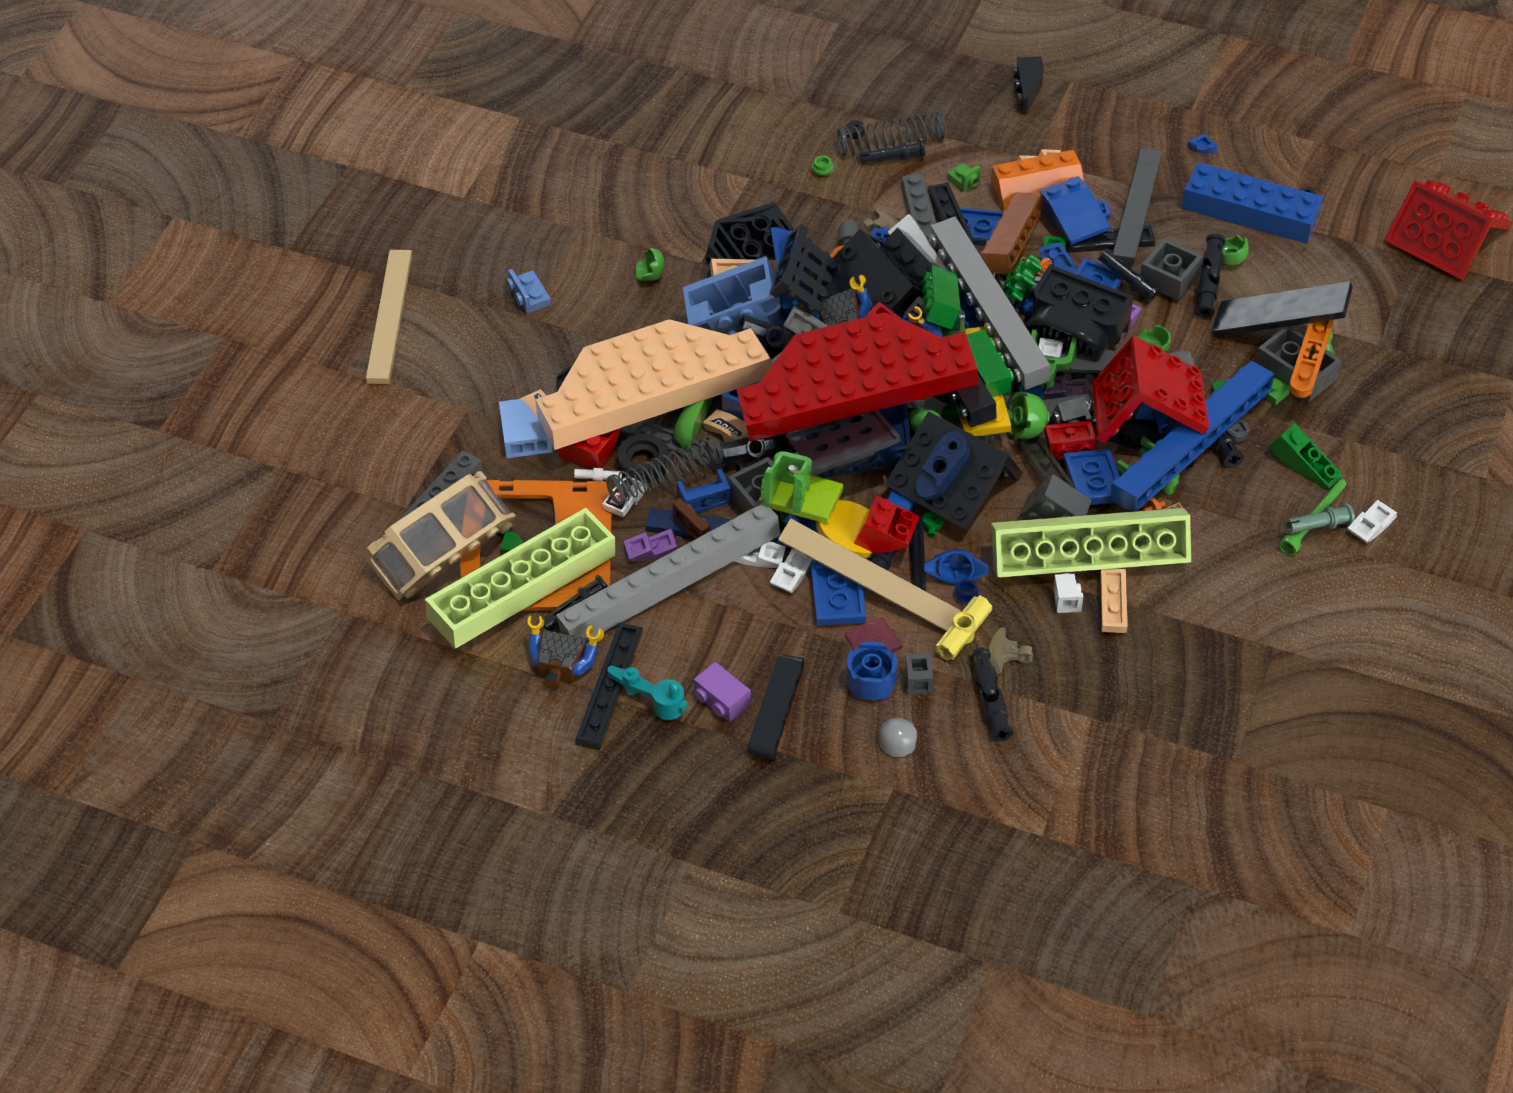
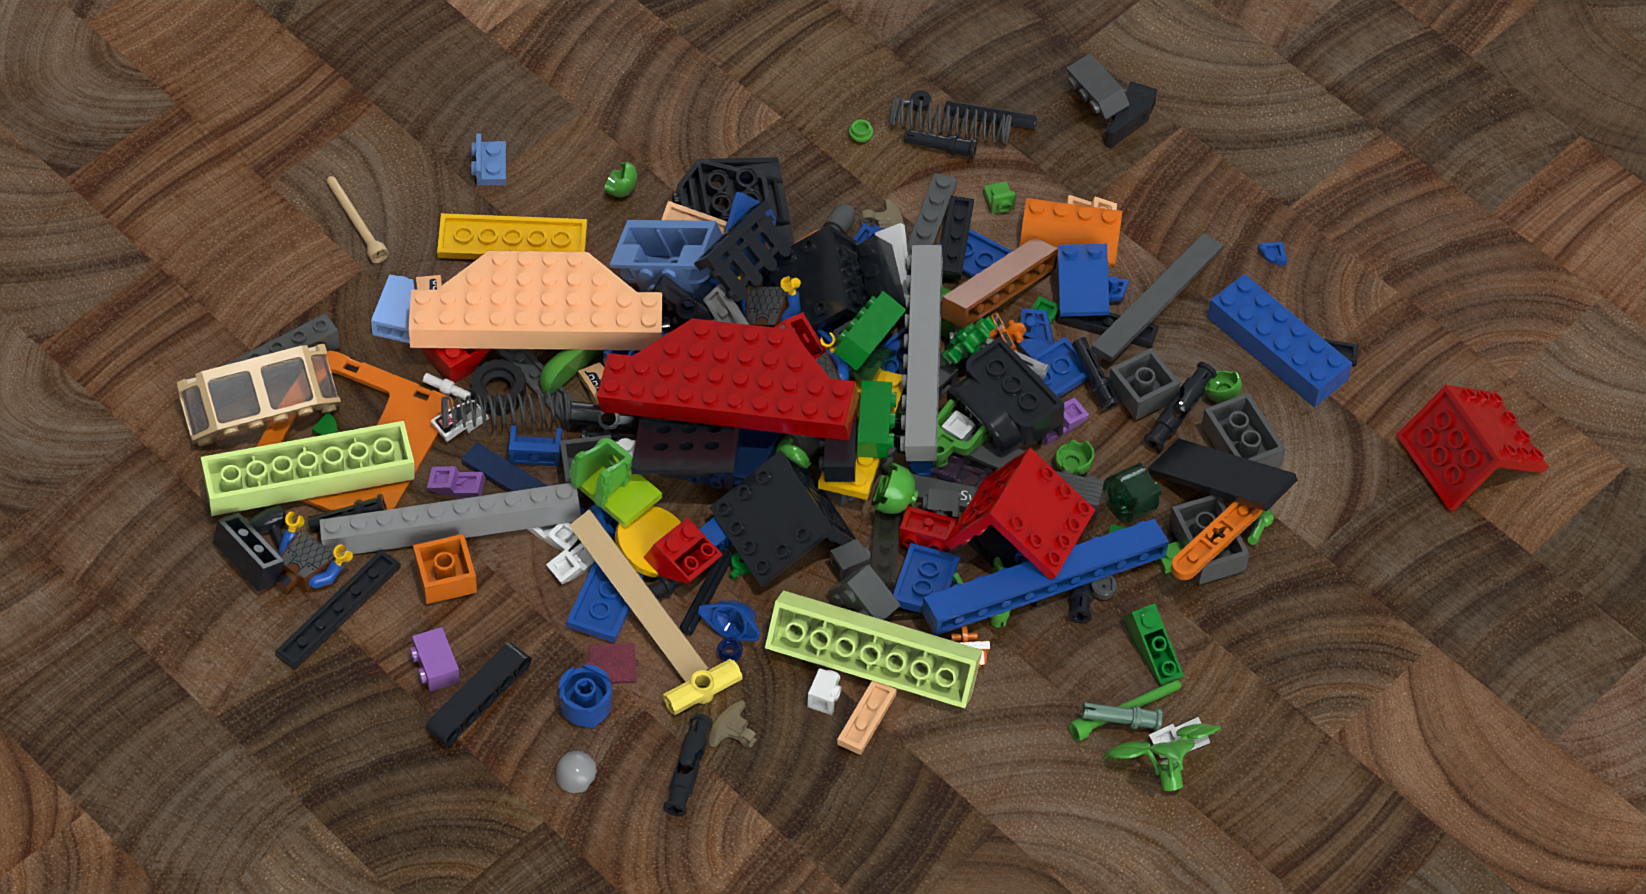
camera: 20 degrees right, 5 degrees up
(389, 317) = (341, 139): tan tile -> none
(472, 390) = (375, 250): none -> tan piece
(505, 665) = (248, 551): none -> black brick
(508, 634) = (270, 520): none -> black piece
(563, 345) = (474, 235): none -> yellow plate
(666, 694) = (377, 641): teal piece -> none
(687, 615) = (445, 568): none -> orange brick
(689, 520) = (501, 465): reddish brown plate -> none
(919, 674) = (631, 716): dark grey brick -> none
(930, 482) = (746, 523): dark blue piece -> none
(949, 116) = (1018, 119): none -> black axle
(994, 69) = (1097, 86): none -> dark grey brick
(1021, 484) = (849, 558): none -> dark grey brick
(1217, 351) = (1132, 493): none -> clear green brick
(1269, 273) = (1242, 430): none -> dark grey brick
(1385, 546) = (1174, 751): none -> bright green plant

